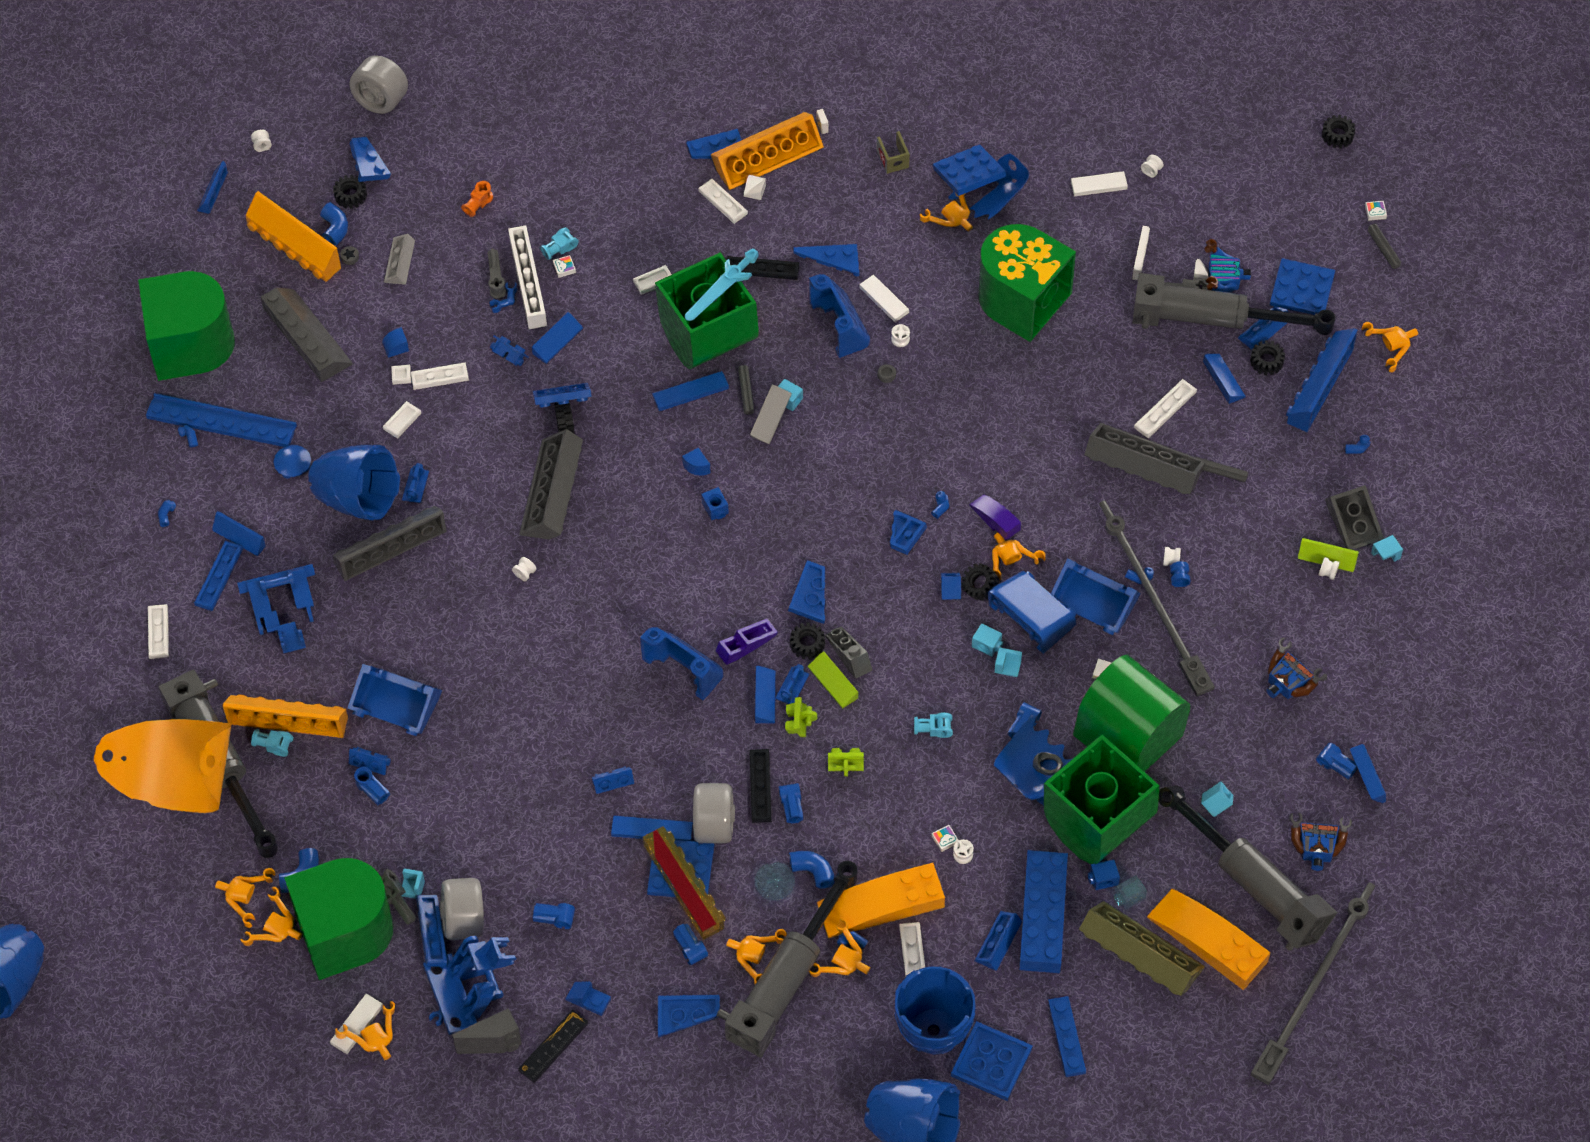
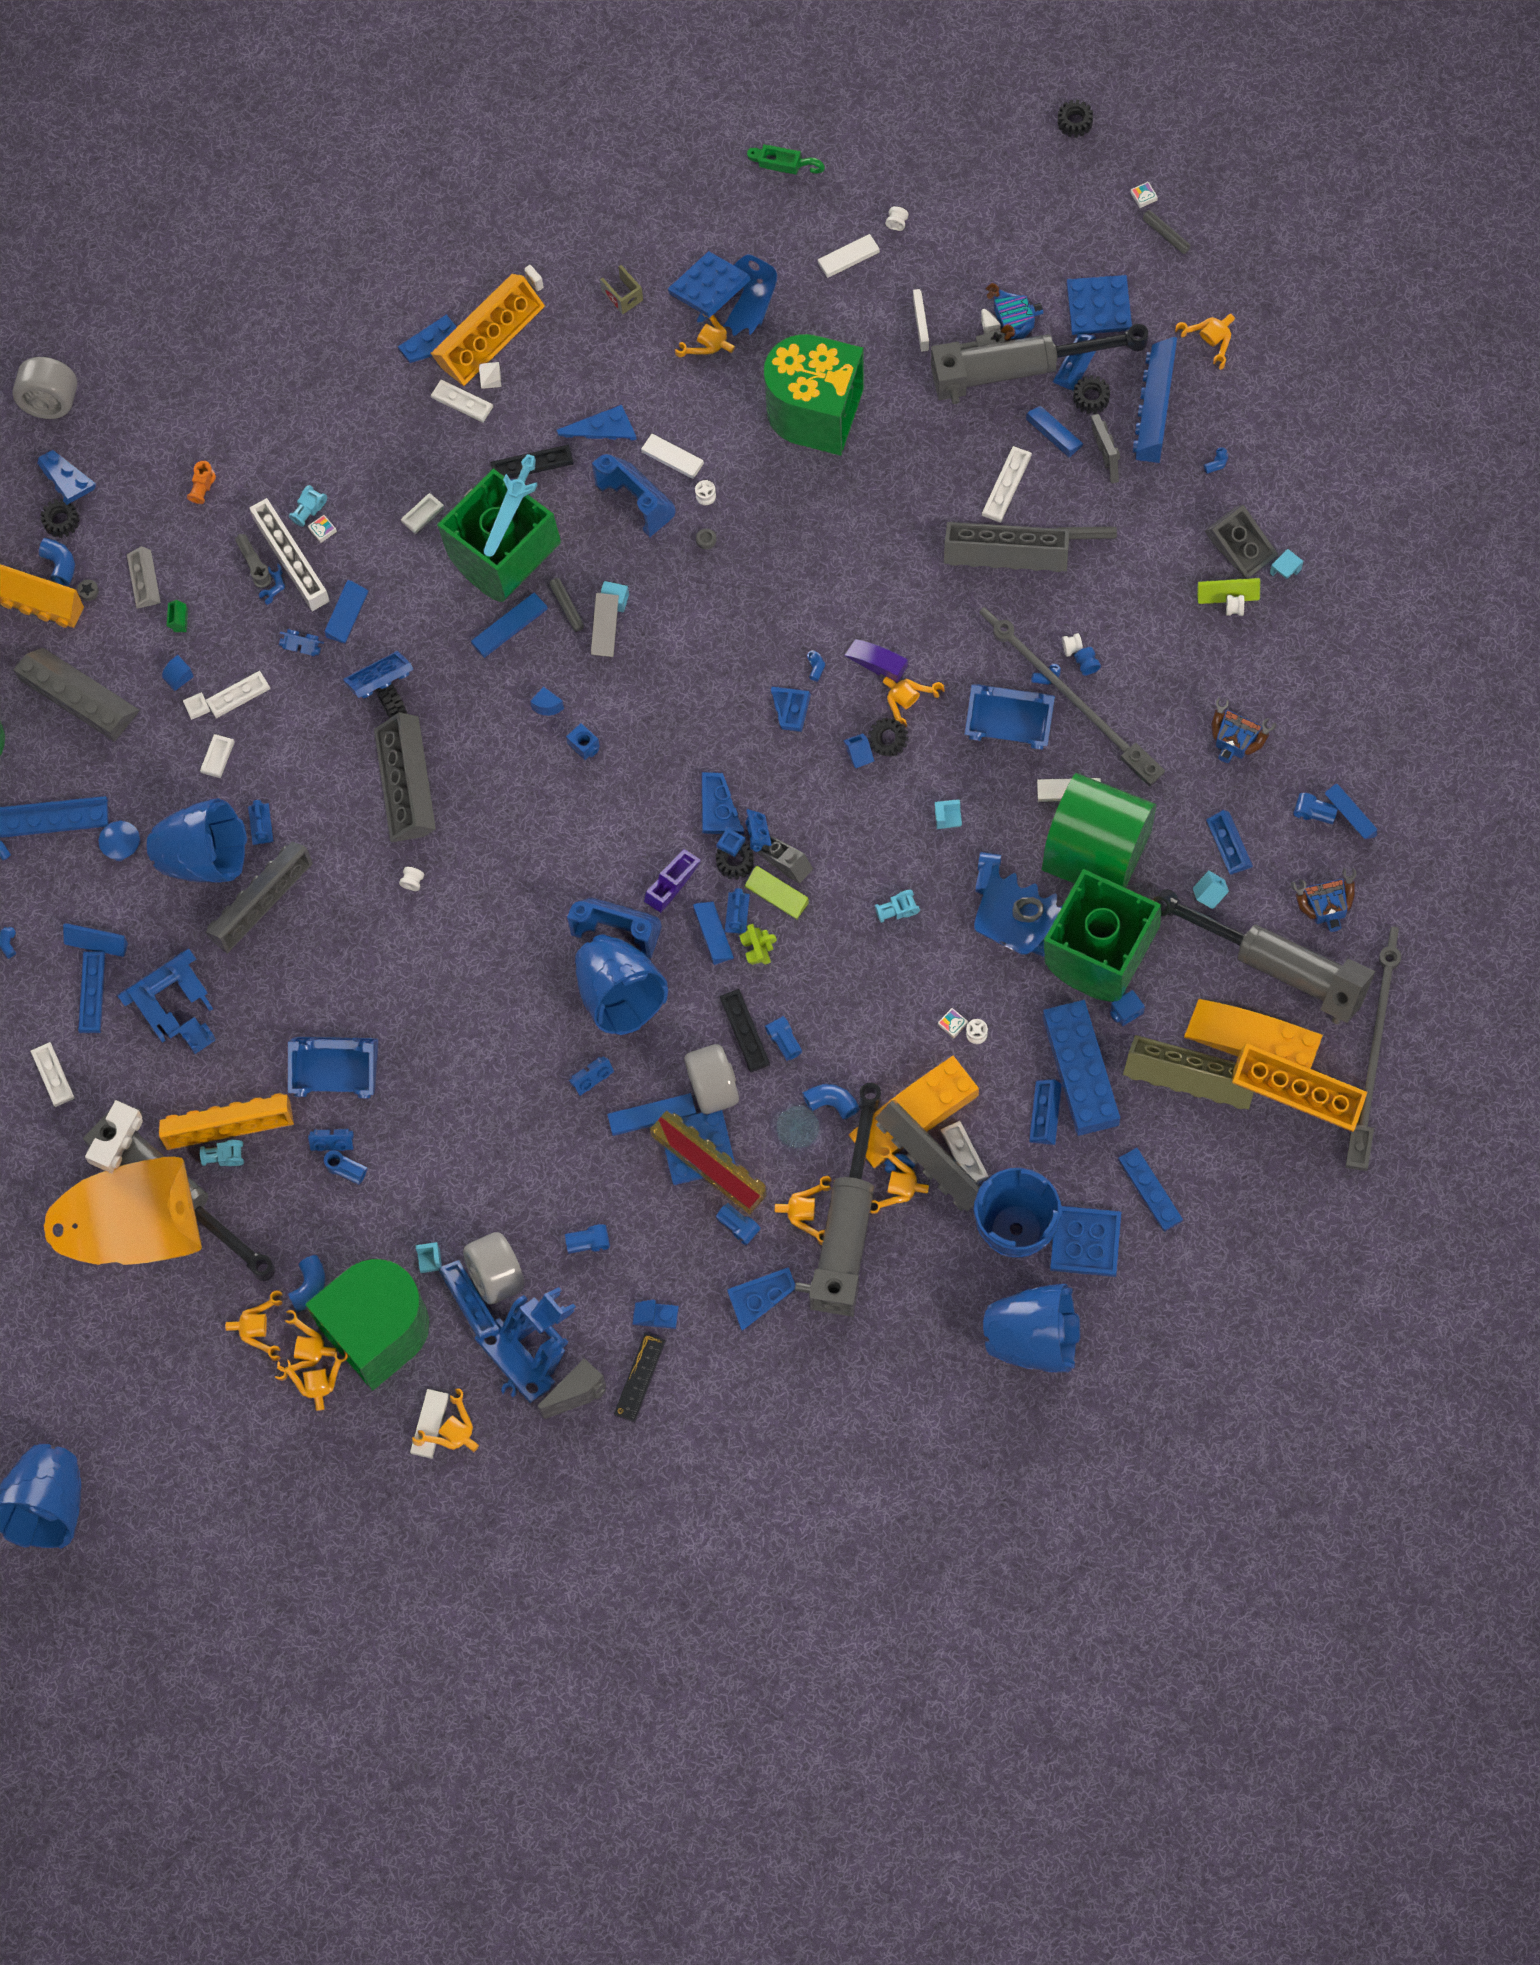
camera: 15 degrees left, 10 degrees up
(174, 704) = (108, 1154): none -> white arch
(273, 954) = (315, 1381): none -> light orange piece
(394, 895) = (416, 1271): dark grey connector -> none
(414, 298) = (177, 616): none -> green piece
(663, 709) = (618, 984): none -> blue piece
(808, 624) = (730, 842): none -> blue tile
(837, 622) = (758, 830): none -> blue hinge
(846, 761) = (823, 976): lime hips -> none
(876, 934) = (929, 1154): none -> dark grey slope
(987, 640) = (918, 797): medium azure brick -> none
(1032, 609) = (953, 749): windscreen -> none
(1075, 91) = (786, 159): none -> green piece
(1130, 893) = (1159, 1018): clear light blue brick -> none
(1231, 989) = (1298, 1087): none -> light orange slope
(1249, 765) = (1229, 842): none -> blue slope
(1264, 402) = (1106, 445): none -> dark grey wing

